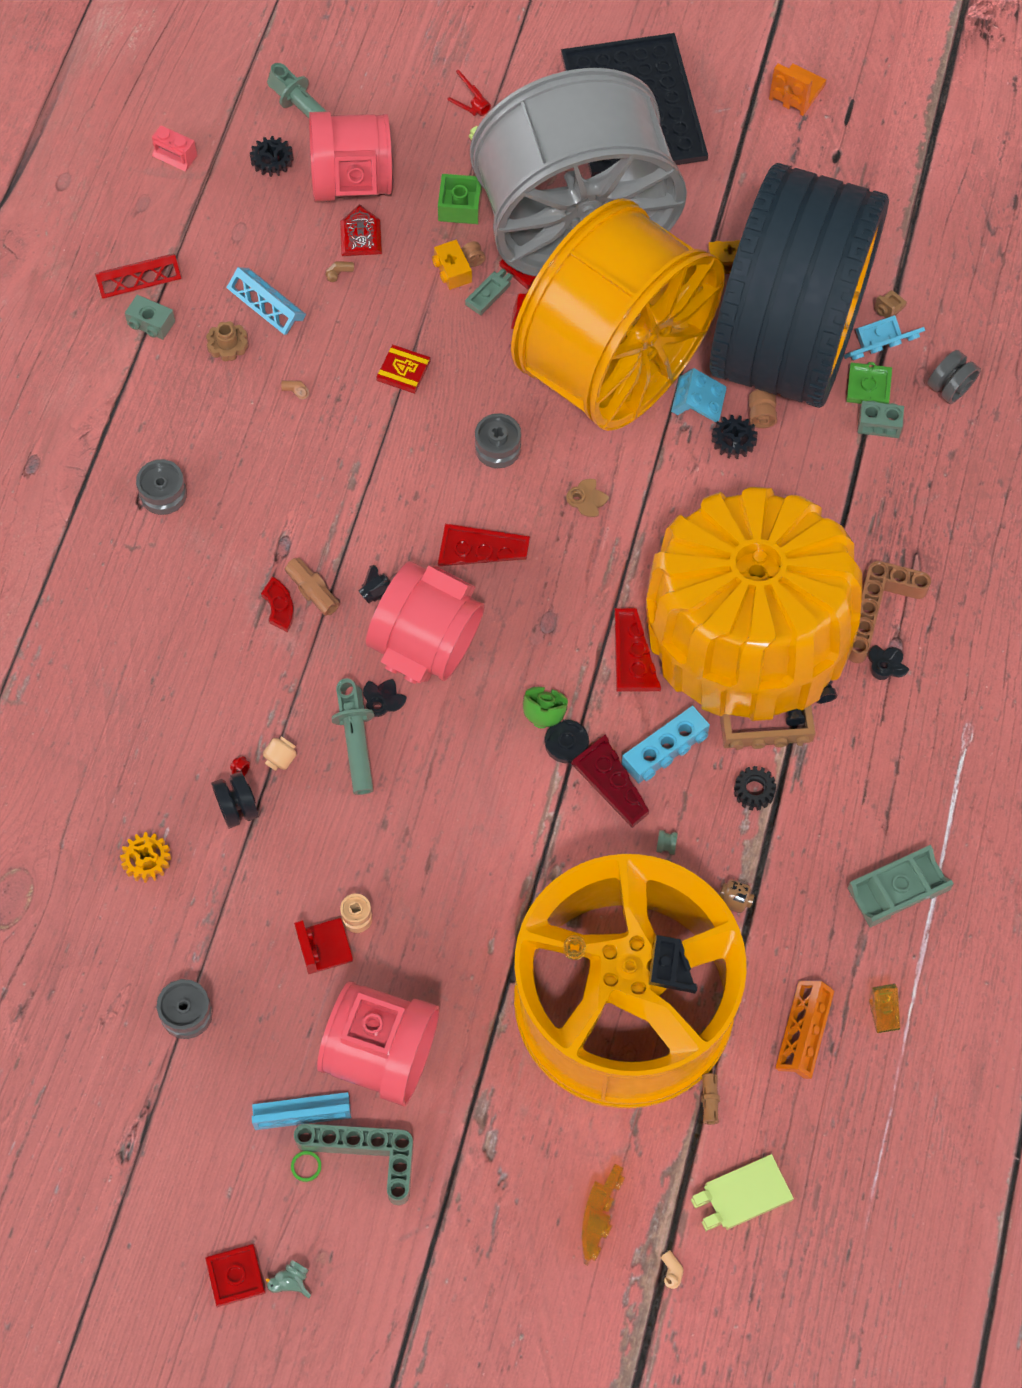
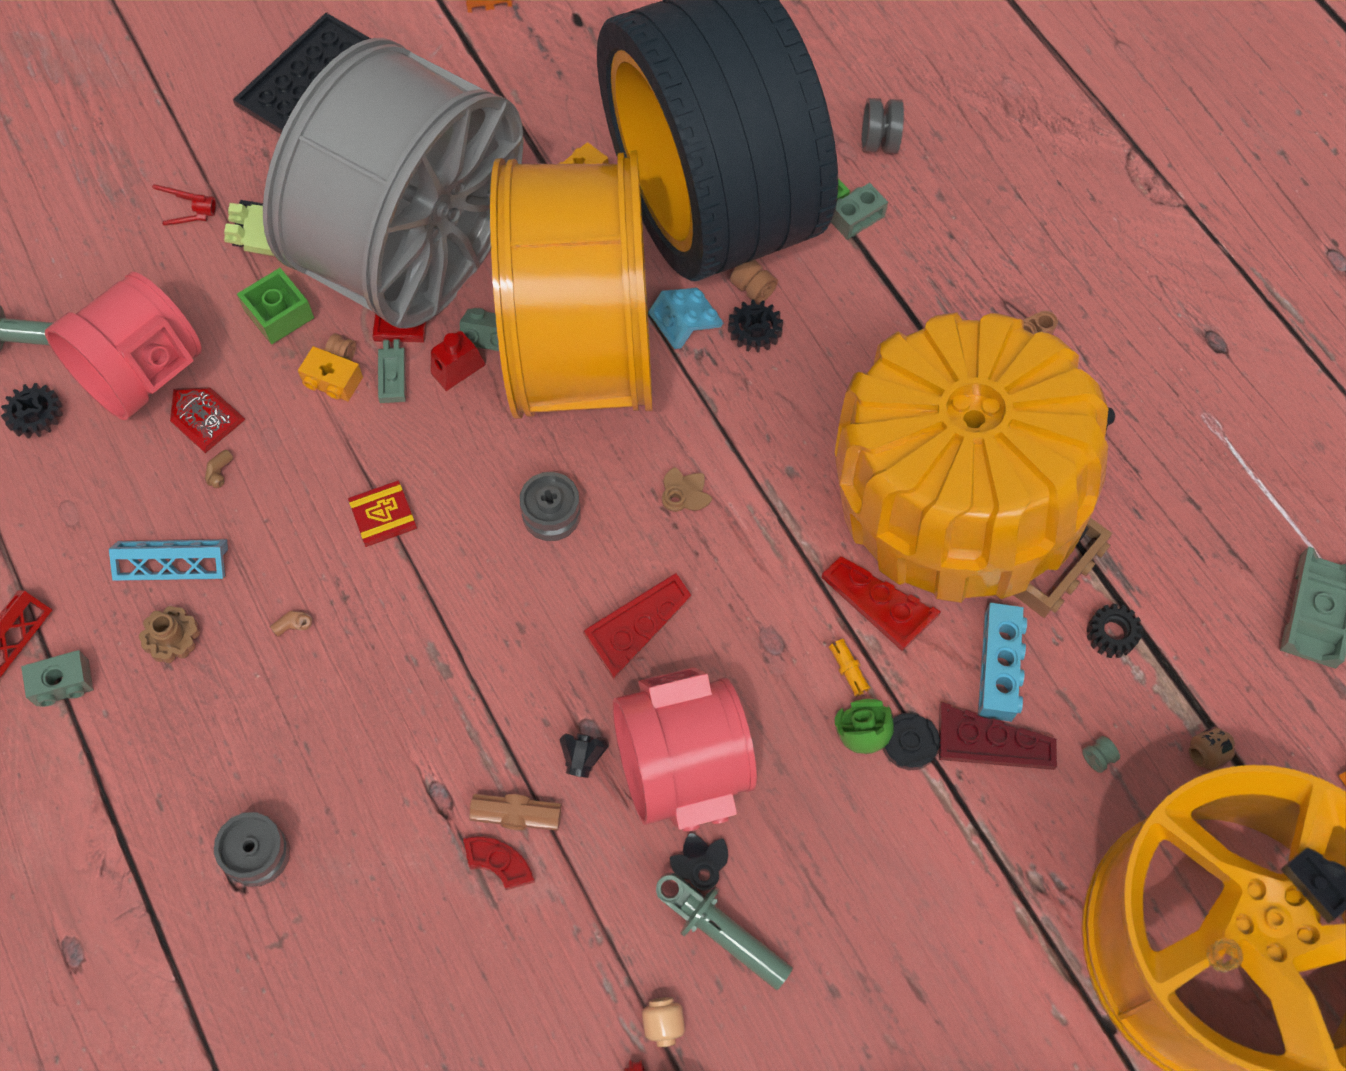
camera: 45 degrees left, 0 degrees up
(574, 672) = (849, 667): none -> light orange pin

